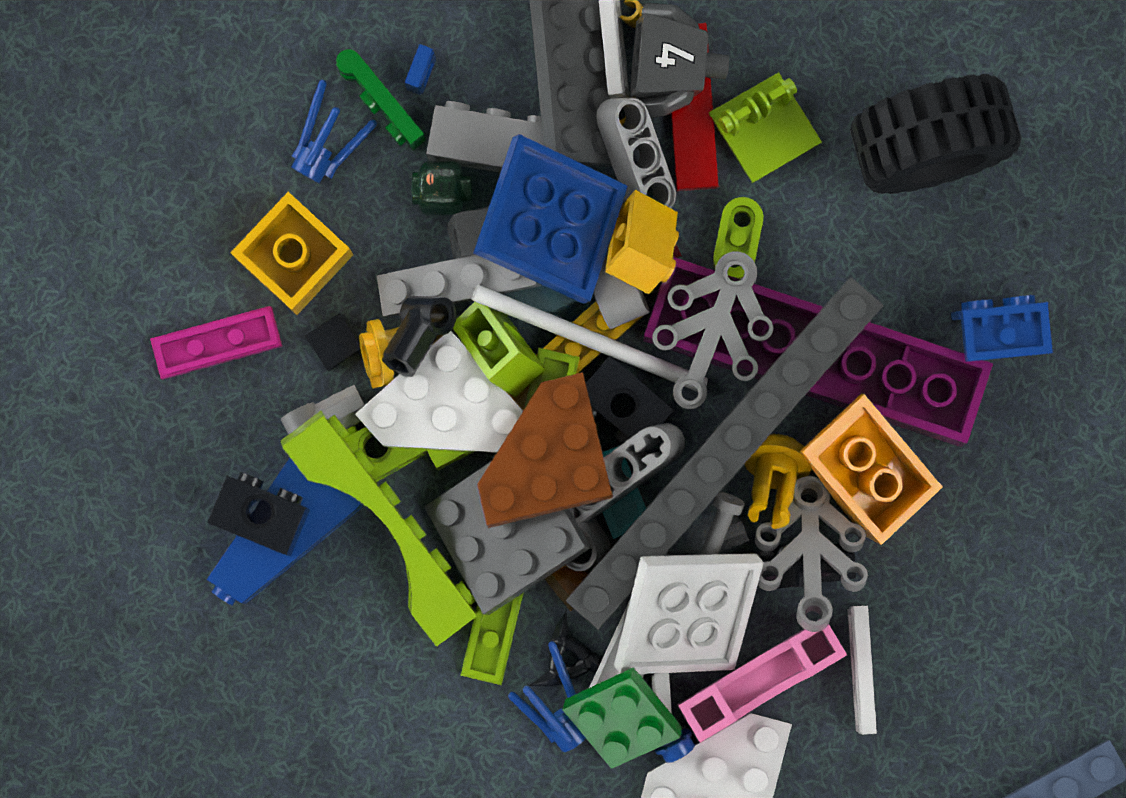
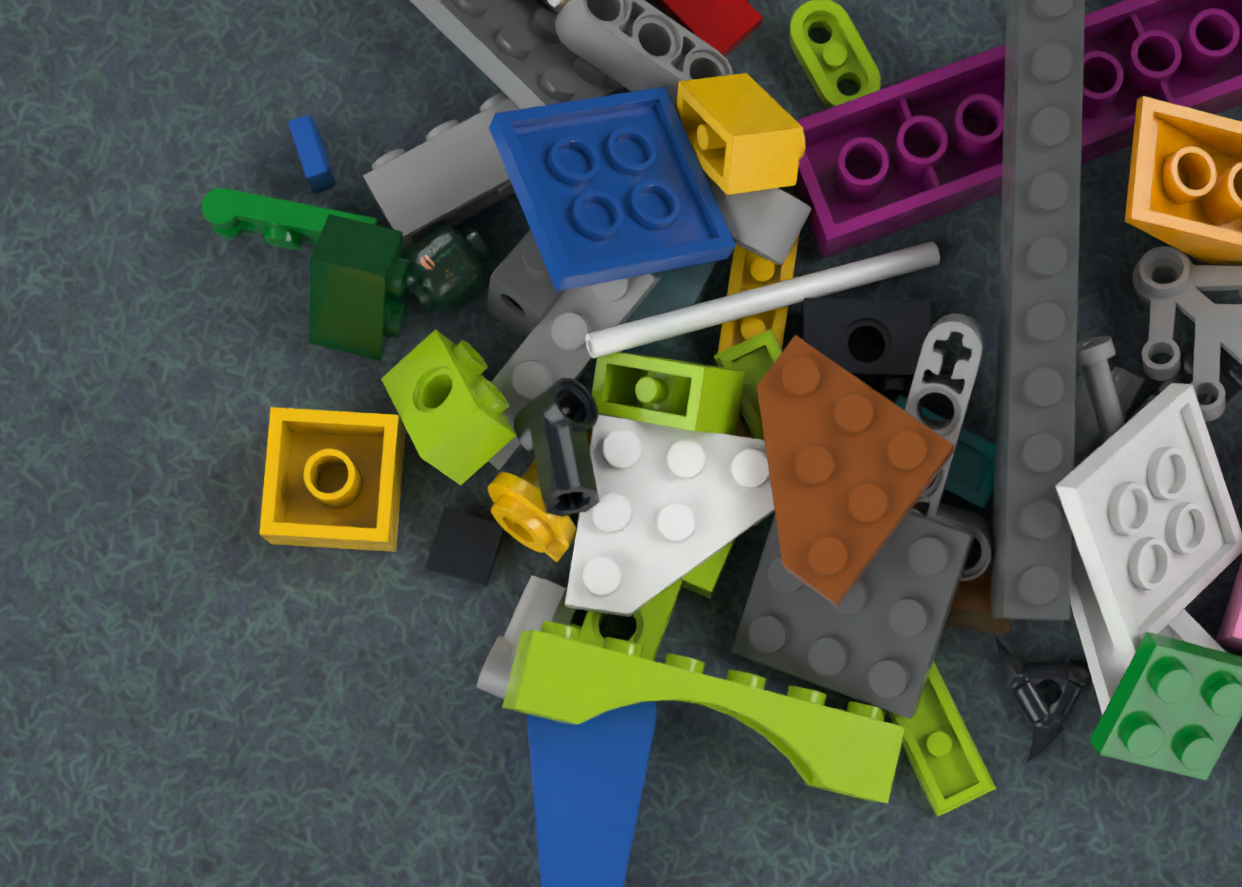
camera: 40 degrees left, 5 degrees down
(216, 342) = (325, 660): dark pink tile -> none
(233, 513) = (514, 840): black brick -> none
(313, 158) = (270, 356): blue plant -> none
(380, 263) = (449, 406): none -> lime brick
(383, 163) = (357, 287): none -> dark green brick
(557, 725) = (1105, 778): blue plant -> none
(716, 322) = (901, 157): light grey plant -> none
(777, 467) = (1117, 287): yellow piece -> none

